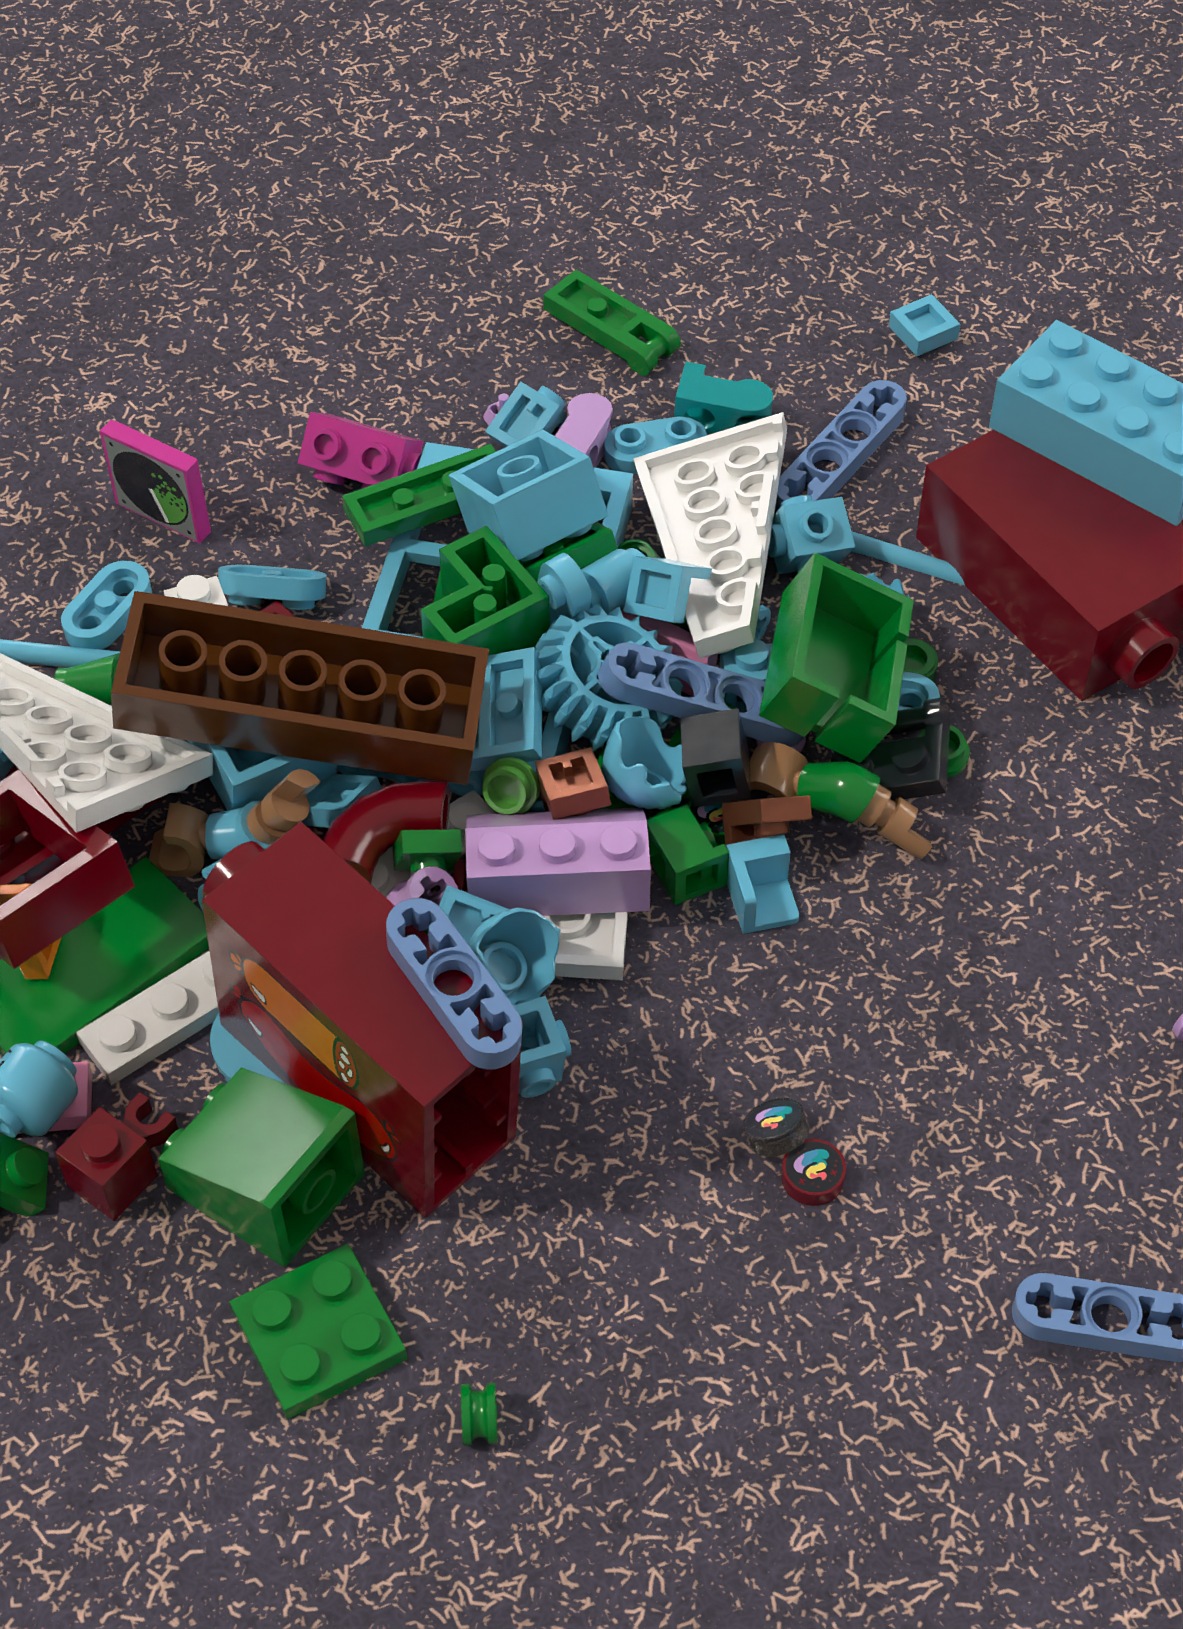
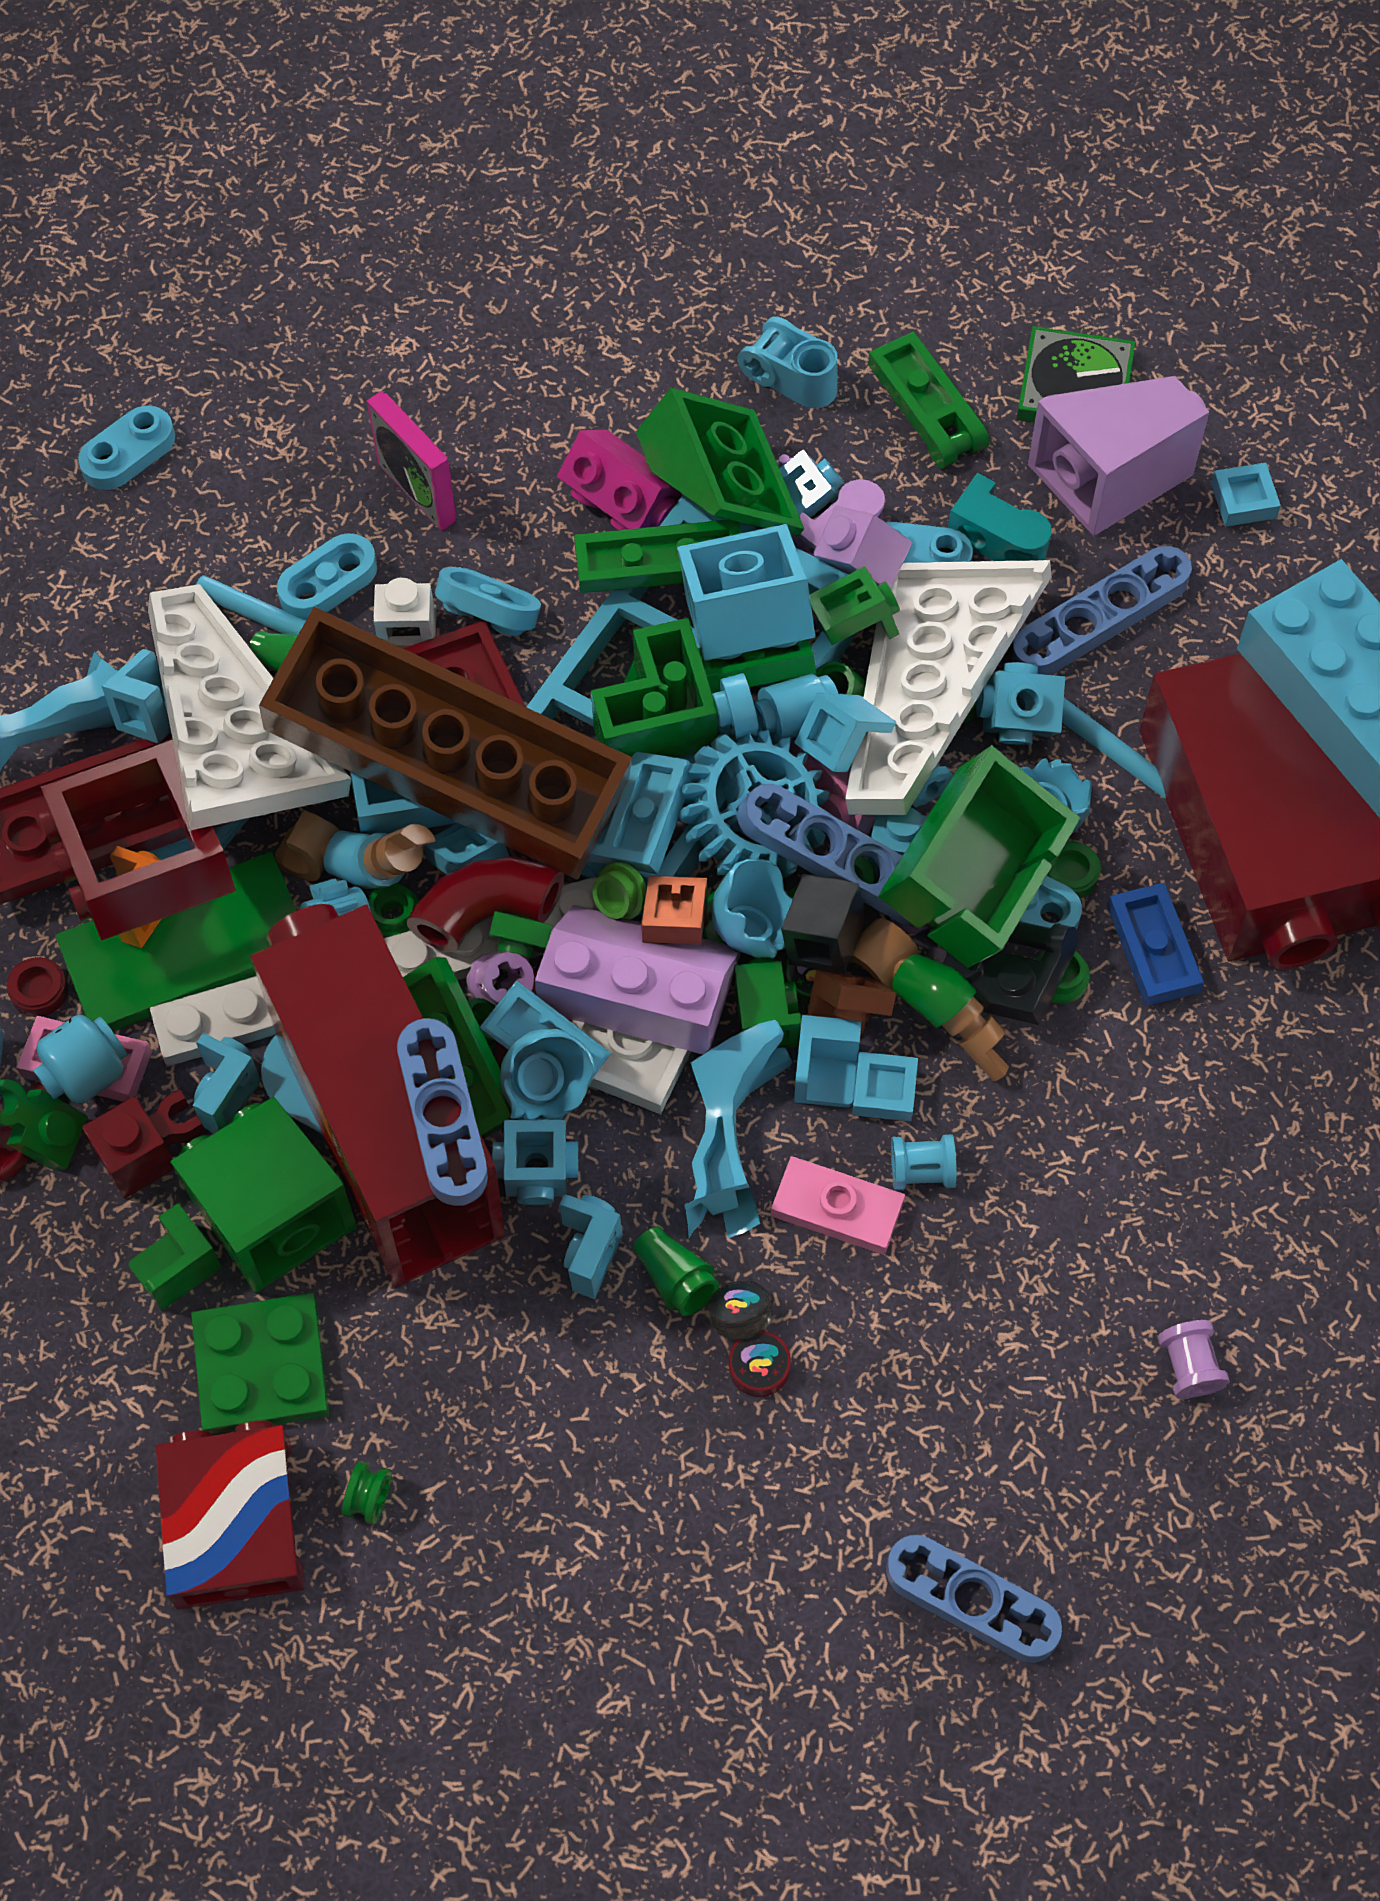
camera: 20 degrees right, 10 degrees up
(183, 1072) = (228, 1088): none -> medium azure bracket
(196, 1256) = (176, 1260): none -> green panel
(348, 1482) = (227, 1515): none -> panel
(440, 401) = (717, 459): none -> green slope
(481, 319) = (793, 364): none -> medium azure piece
(607, 1097) = (590, 1253): none -> medium azure bracket
(614, 439) = (861, 540): none -> lavender brick
(631, 484) = (854, 605): none -> green bracket
(672, 929) = (725, 1080): none -> medium azure animal
(702, 1113) = (677, 1273): none -> green cone
(734, 276) = (1071, 363): none -> tile
(799, 309) = (1117, 446): none -> lavender slope
(825, 890) = (885, 1086): none -> medium azure plate
(825, 1008) = (837, 1205): none -> bright pink plate
(910, 945) = (923, 1162): none -> medium azure bush
(1014, 701) = (1155, 944): none -> blue plate

